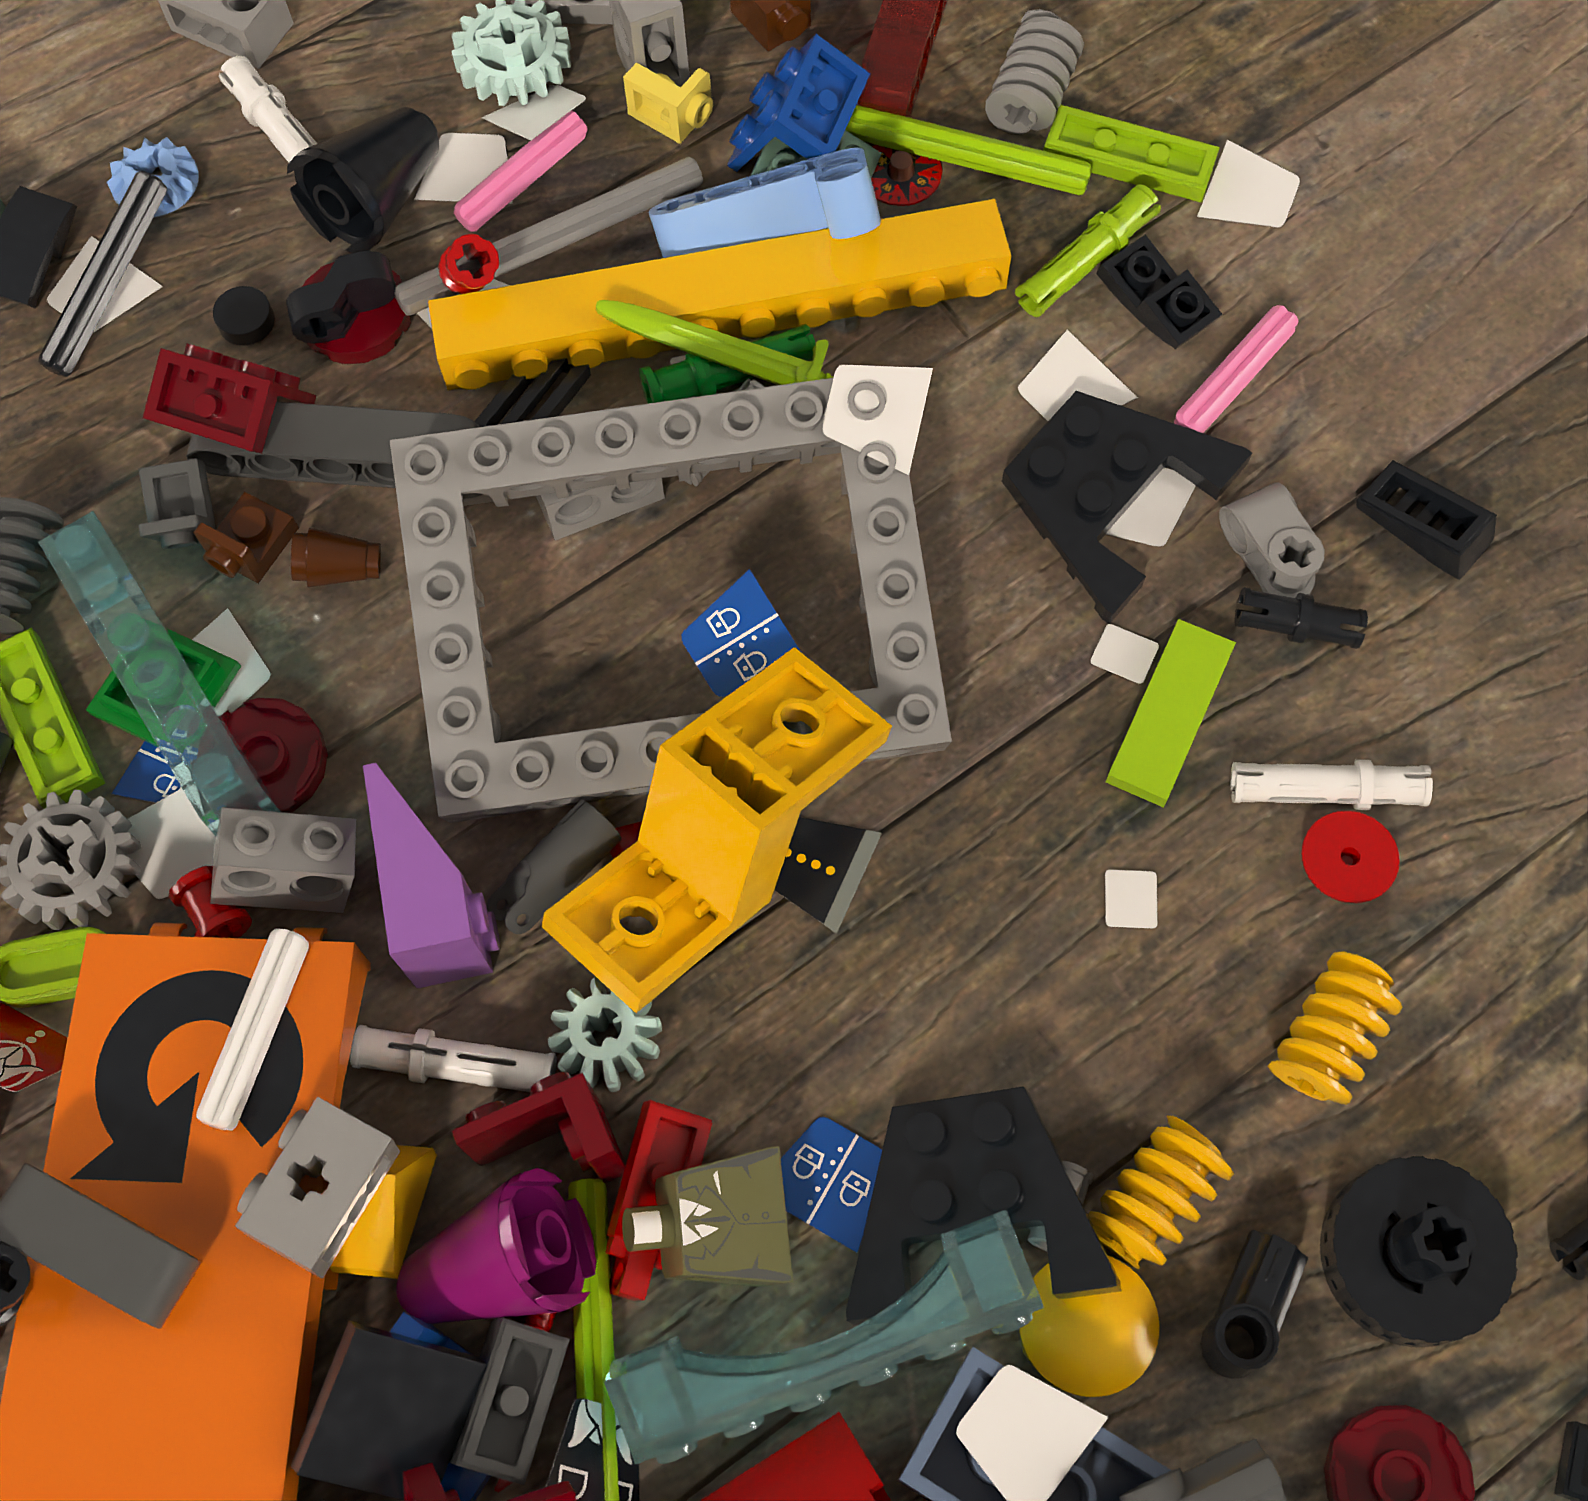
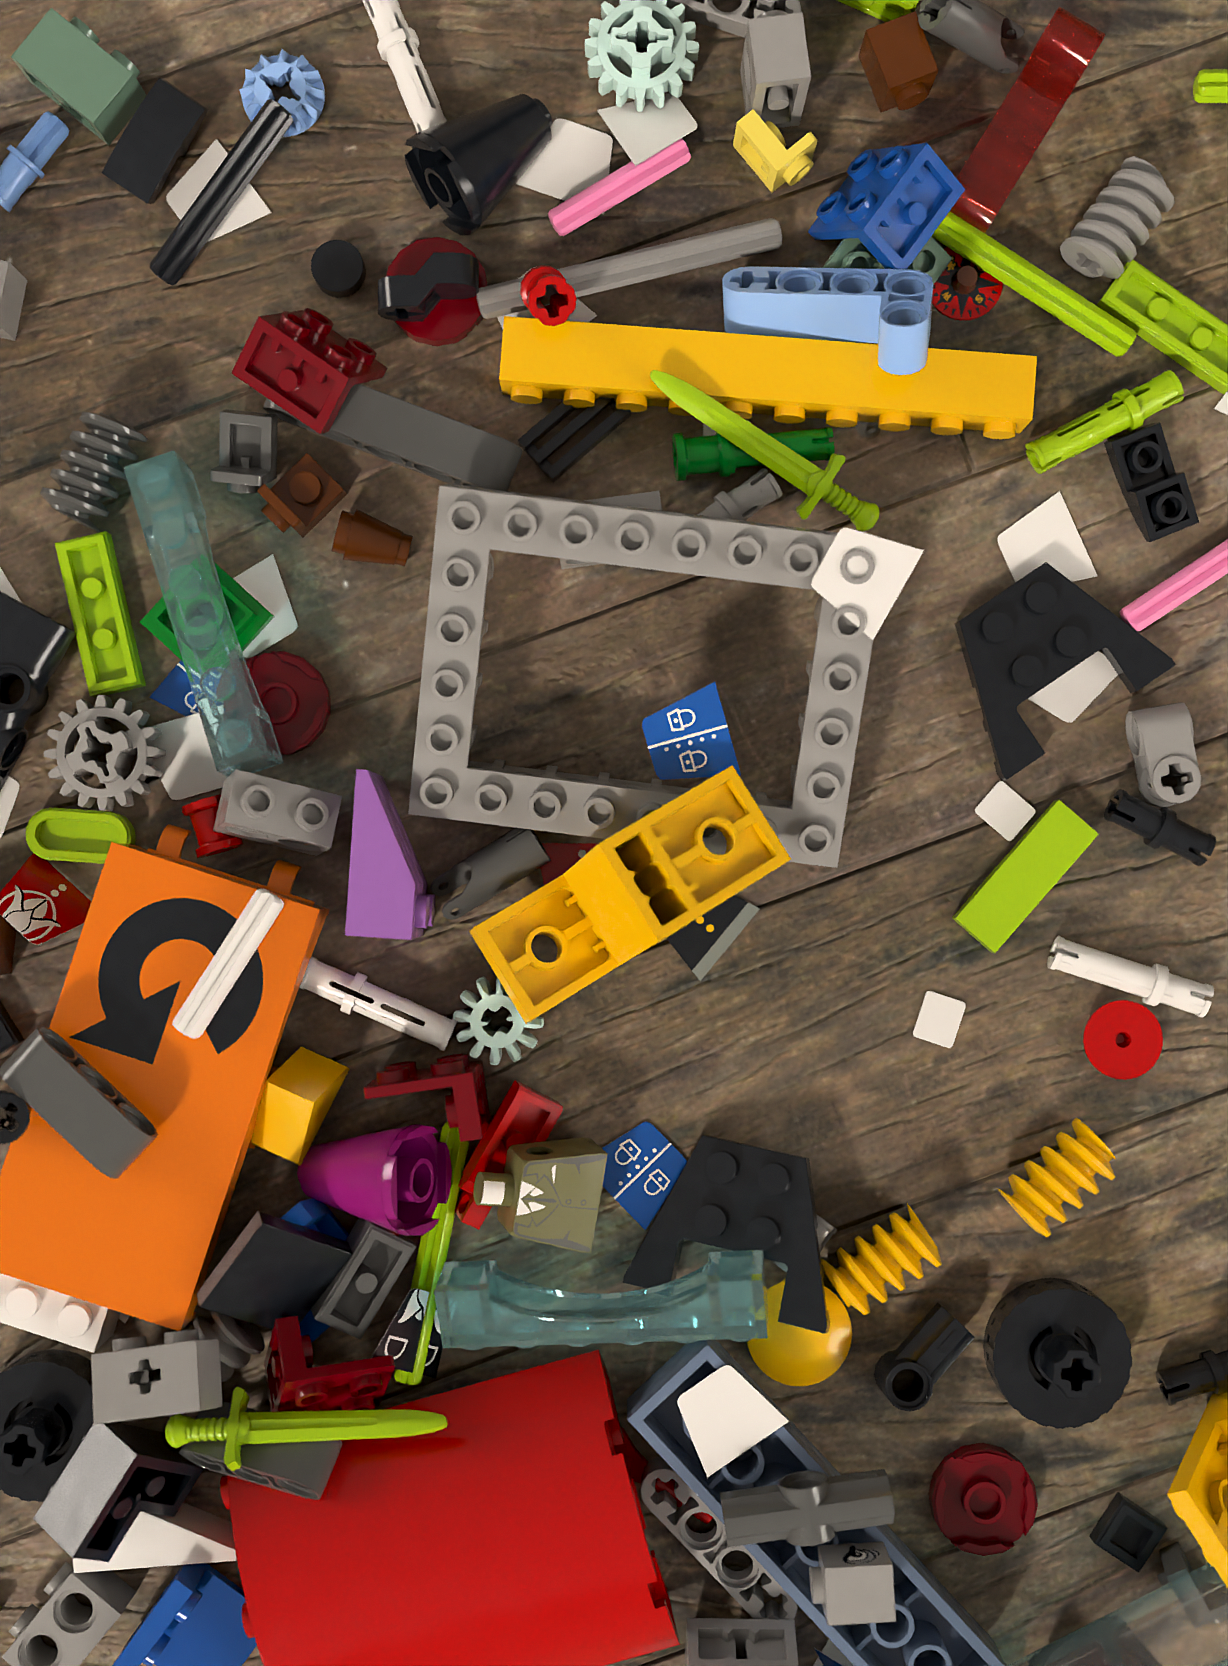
camera: 15 degrees right, 20 degrees up
(312, 1225) = (241, 1137): light grey brick -> none

